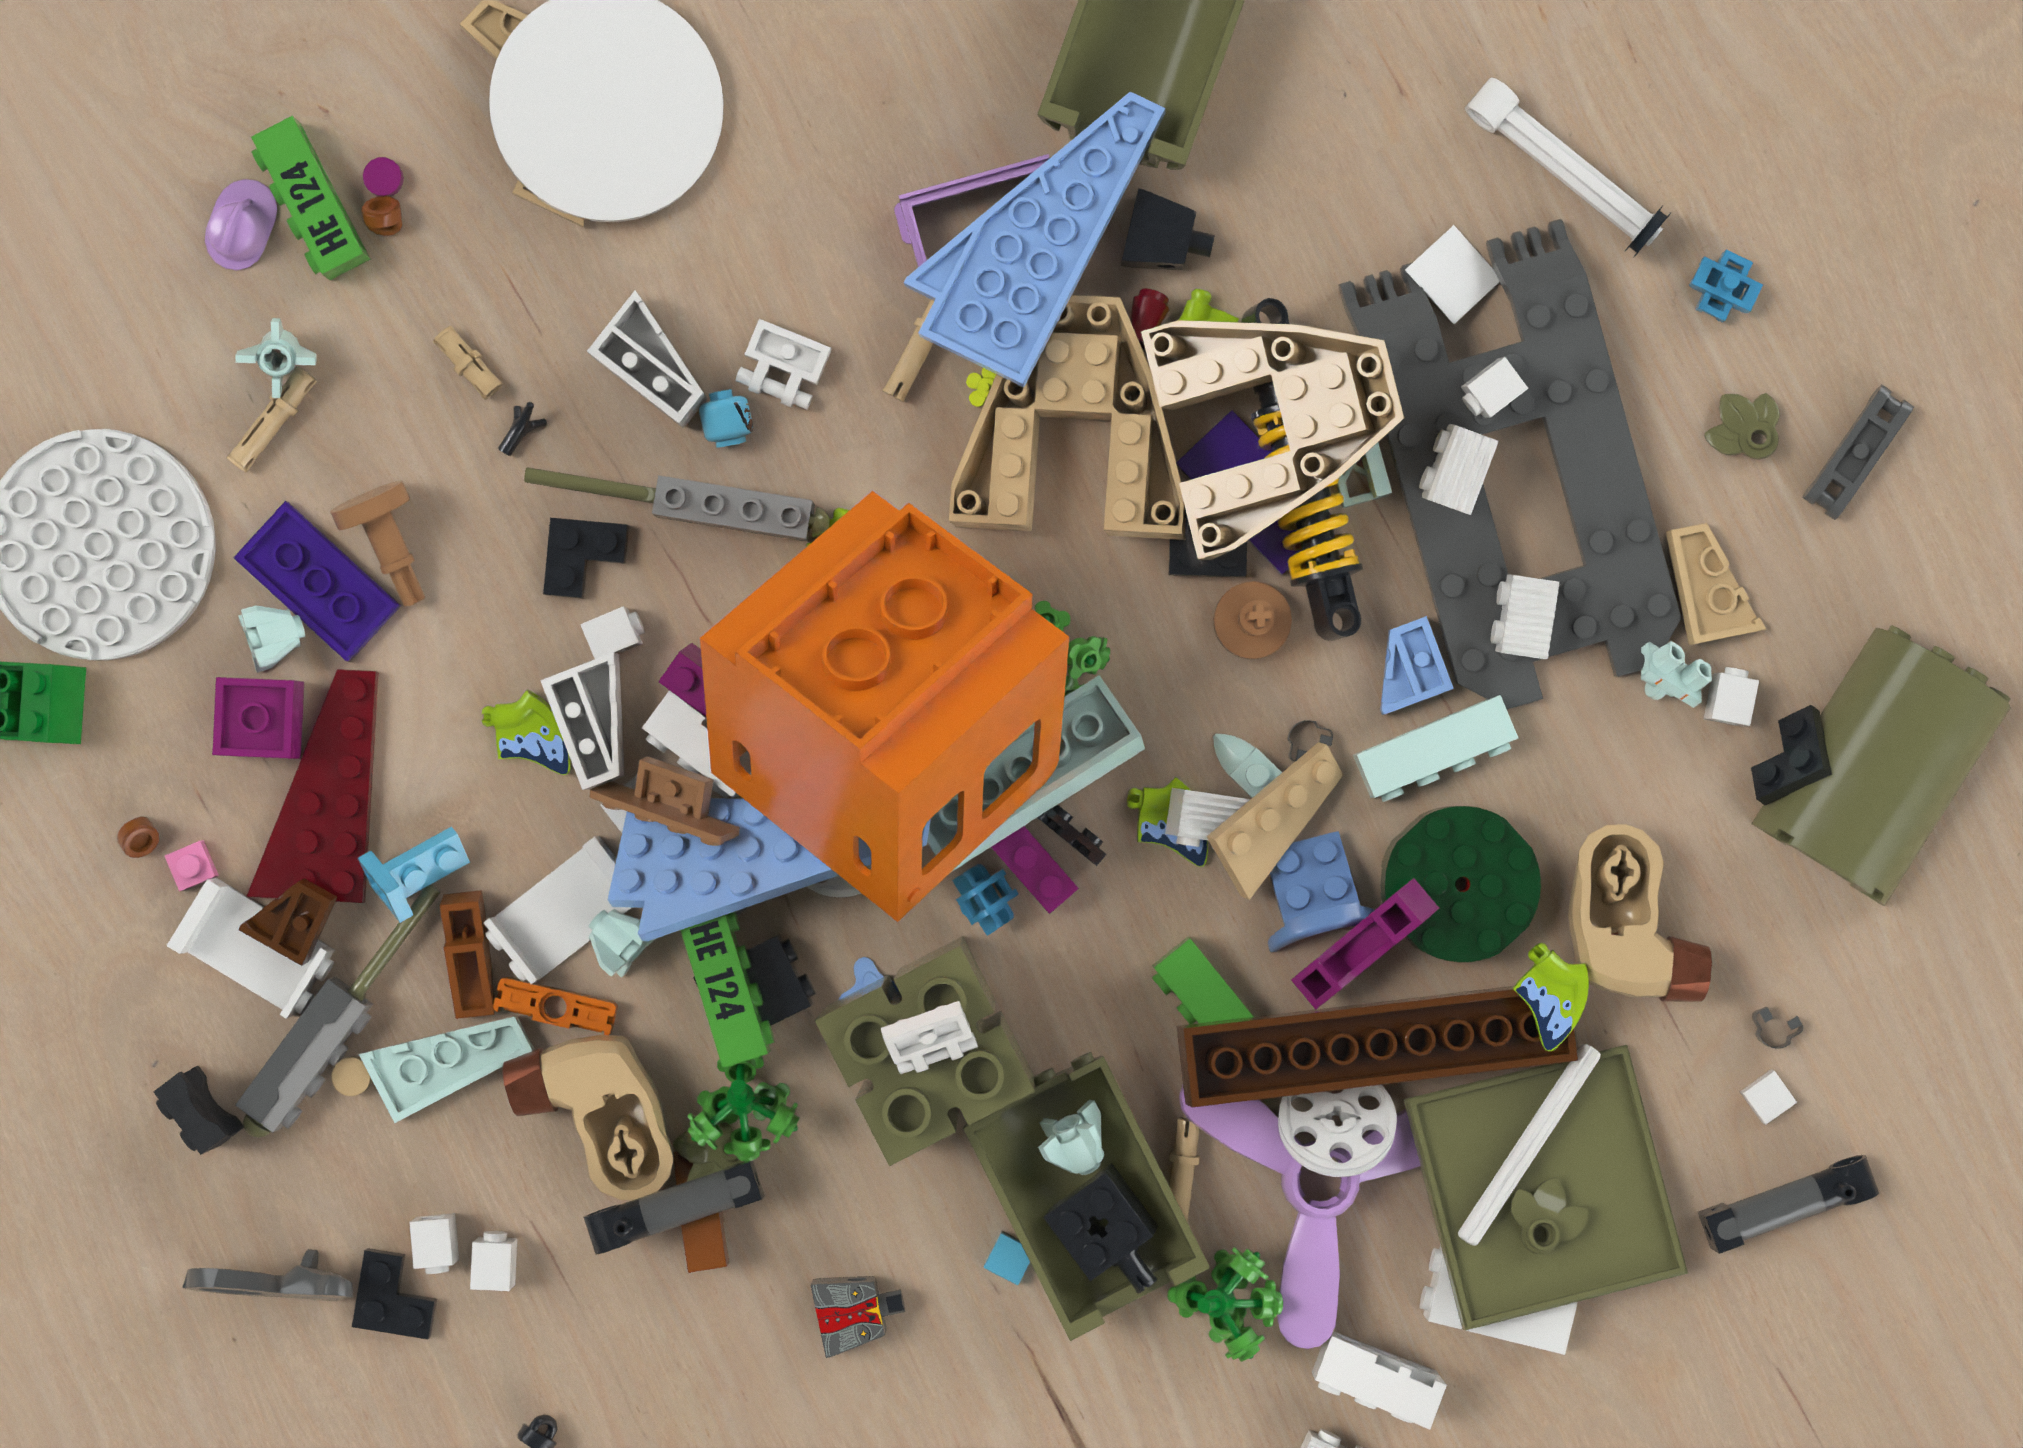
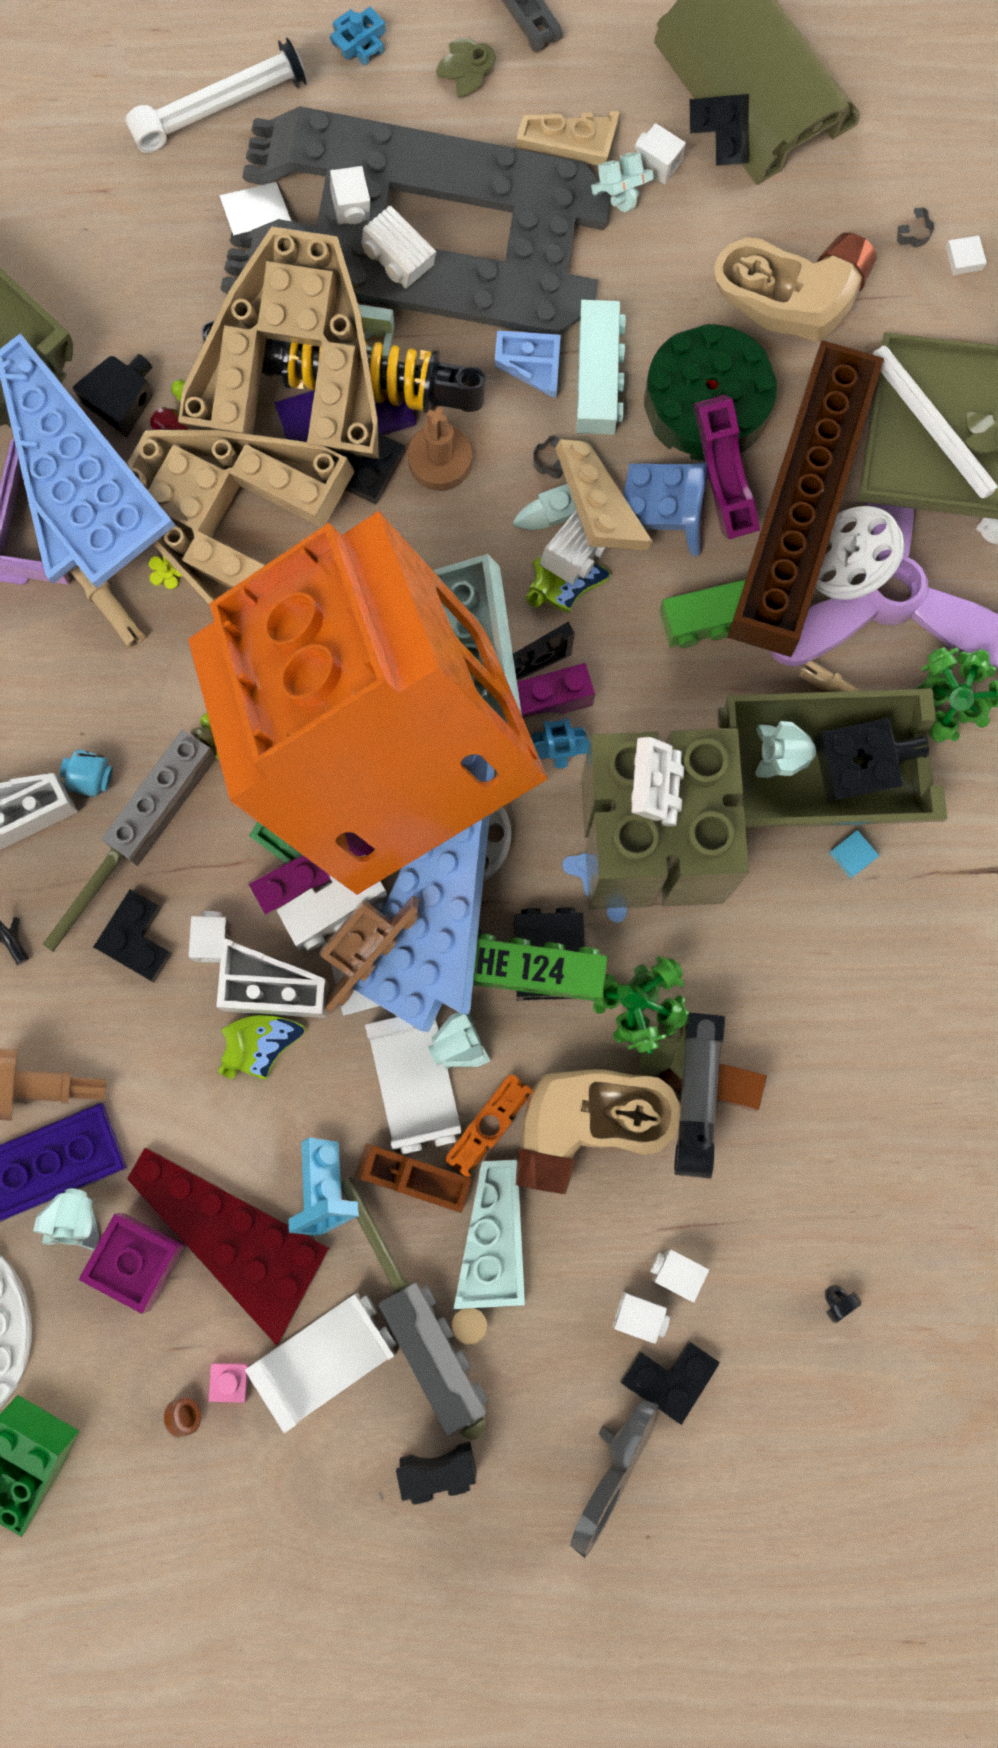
camera: 65 degrees left, 10 degrees down
(292, 921) = (315, 1313): reddish brown wing -> none
(786, 352) = (61, 704): white plate -> none
(852, 1311) = (846, 995): torso -> none
(1525, 616) = (531, 253): white brick -> none
(1554, 994) = (826, 350): lime arm -> none

